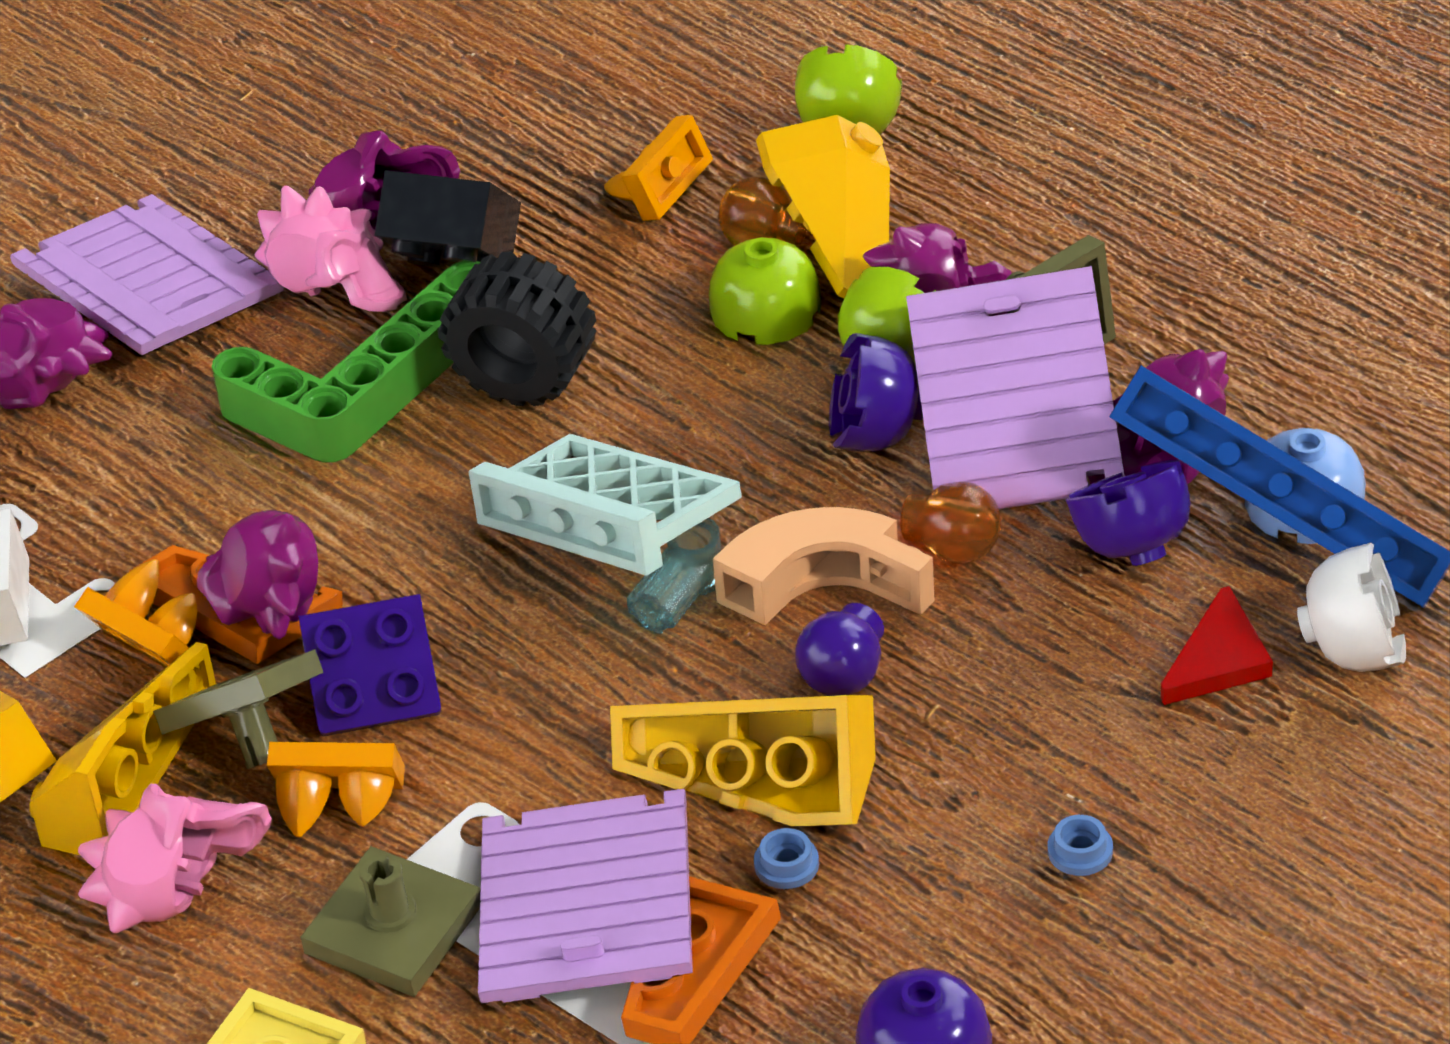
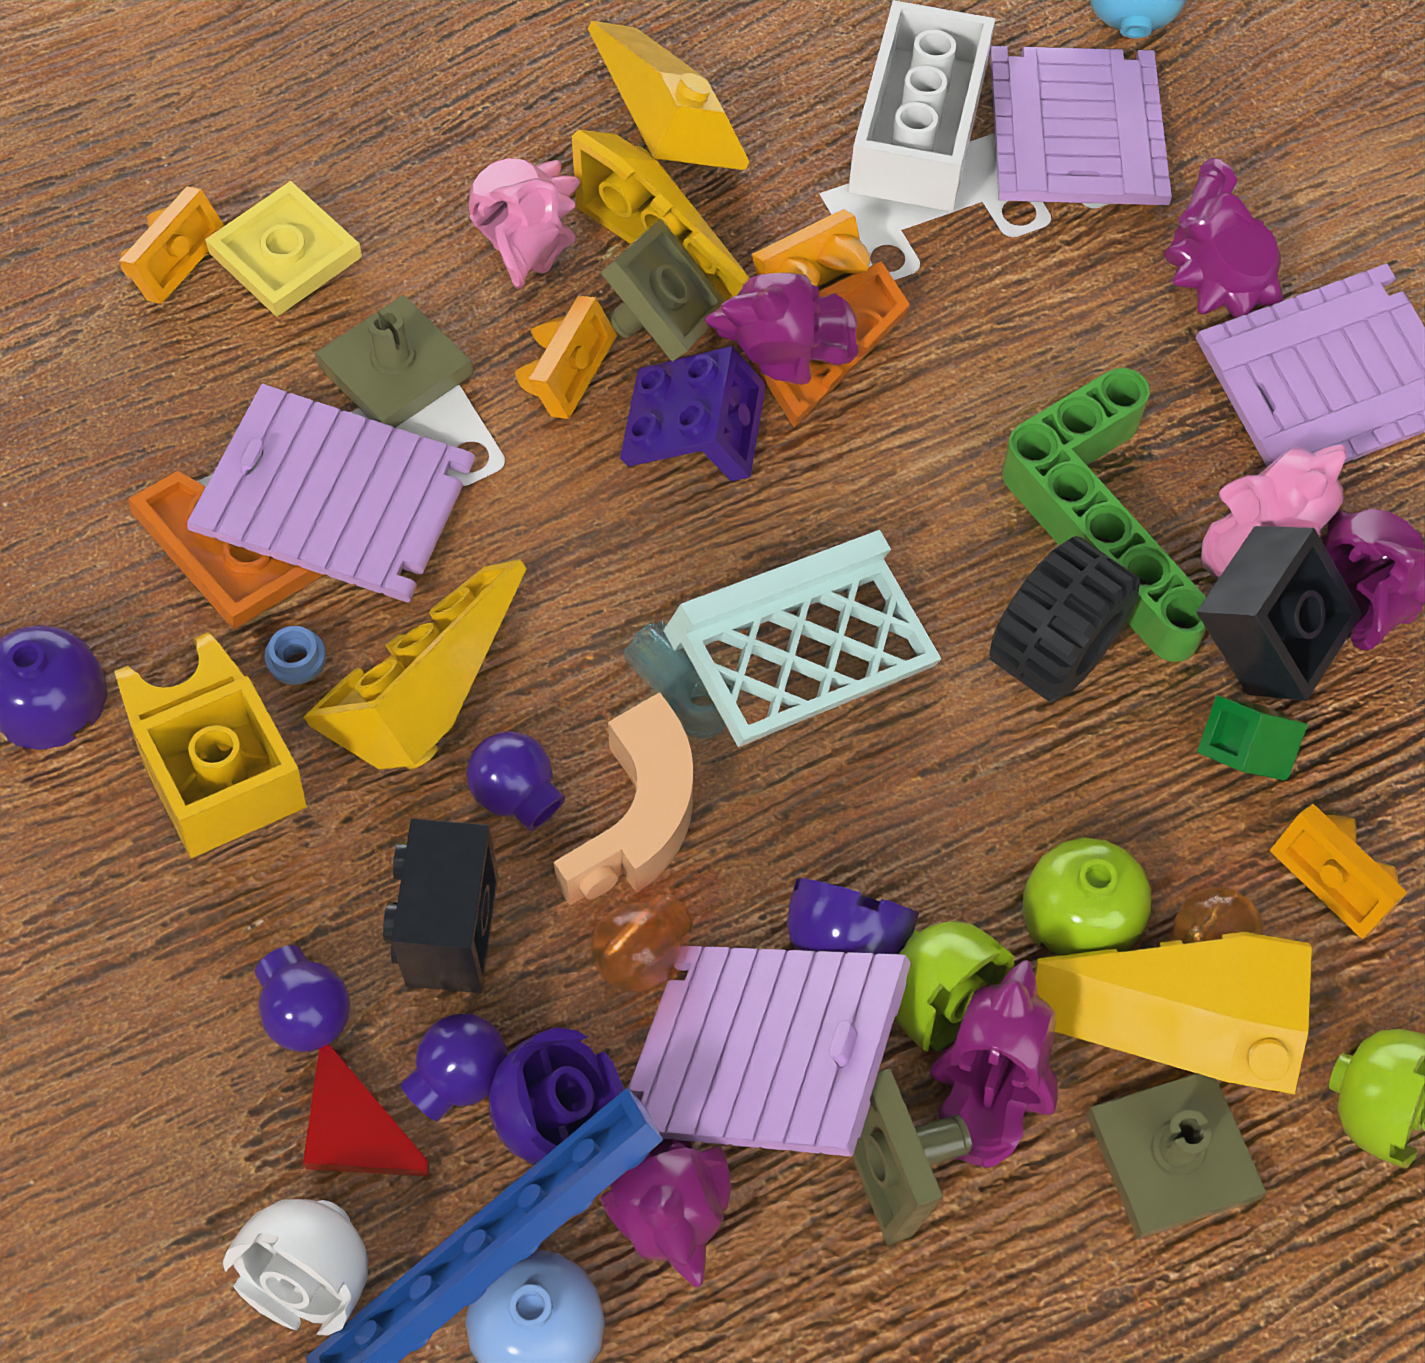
camera: 105 degrees right, 20 degrees up
(565, 235) = (1252, 738): none -> green panel
(927, 857) = (212, 751): none -> yellow brick
(957, 198) = (1175, 1154): none -> olive tile
(1000, 621) = (443, 905): none -> black brick
(1080, 846) = (166, 879): medium blue plate -> none
(1130, 588) = (454, 1064): none -> dark purple piece
(1134, 711) = (300, 1000): none -> dark purple piece

